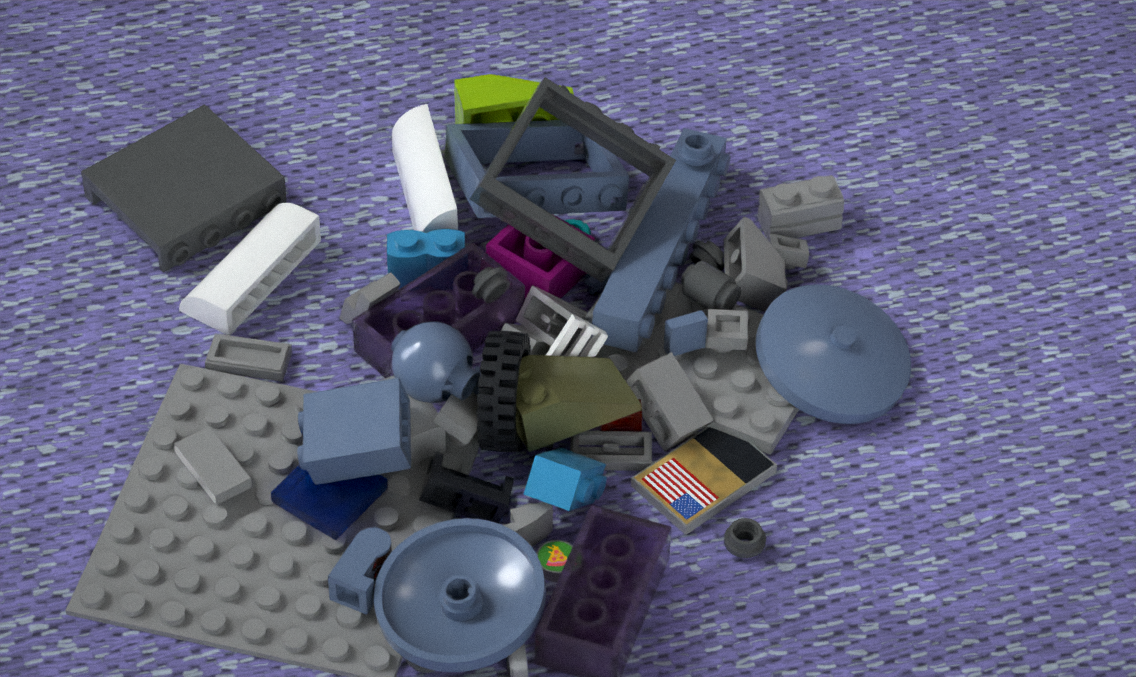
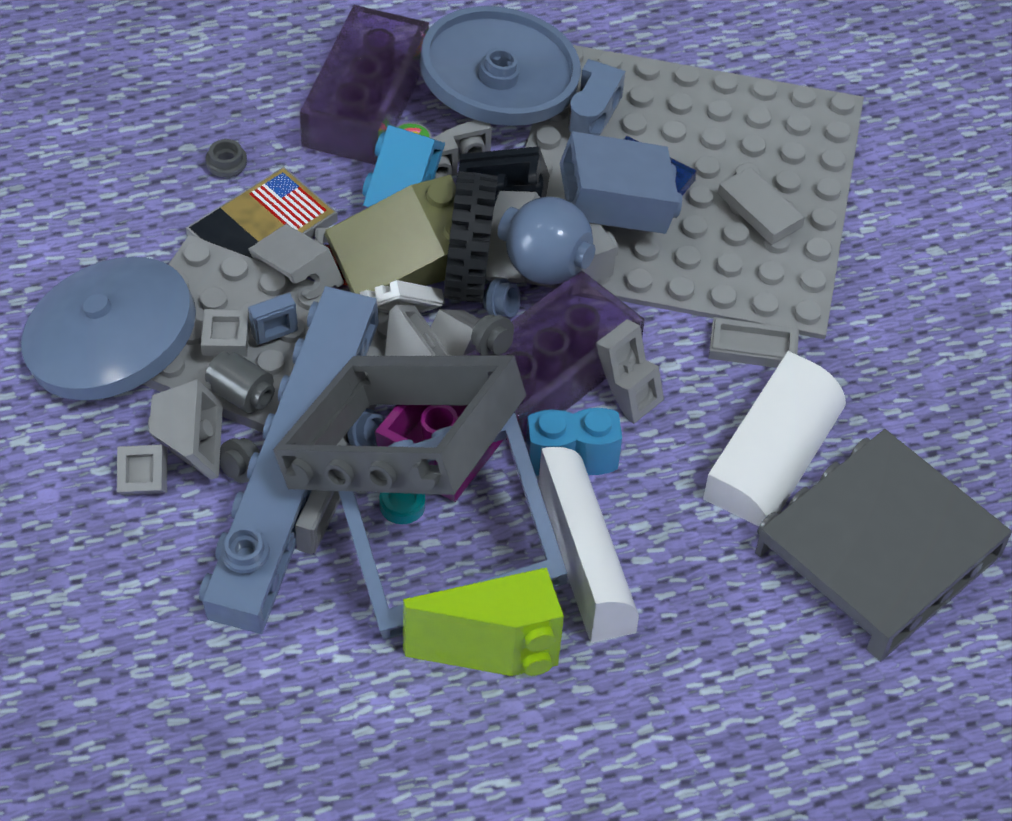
camera: 175 degrees right, 5 degrees up
(801, 207) = (118, 520): light grey brick -> none

